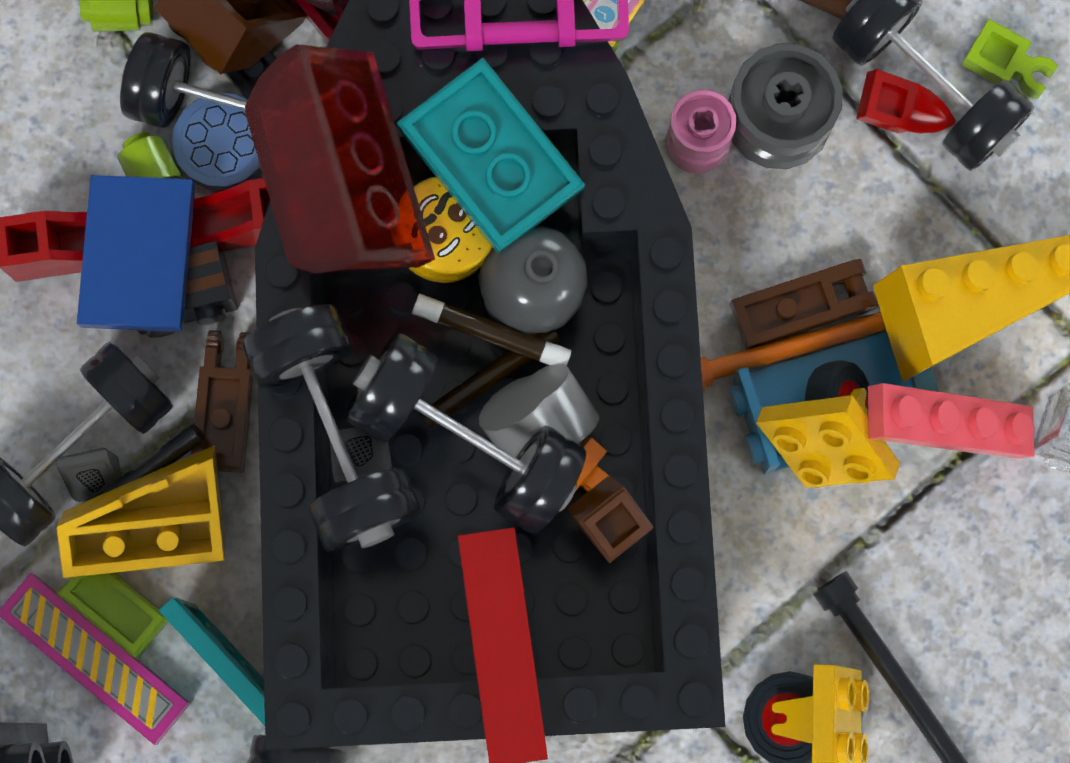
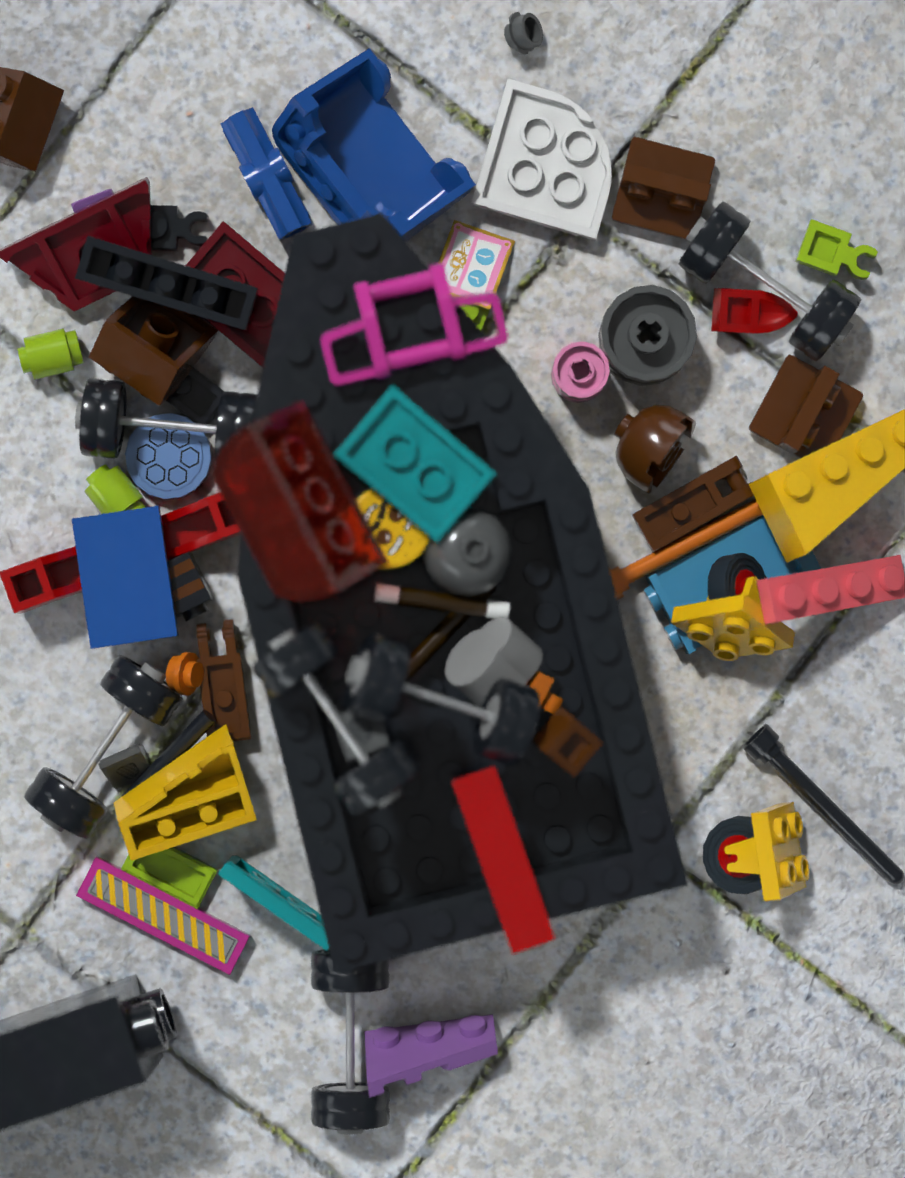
camera: 10 degrees left, 10 degrees up
(181, 378) = (184, 673): none -> orange plate
(767, 223) = (651, 444): none -> reddish brown cylinder
(948, 217) = (805, 408): none -> reddish brown bracket

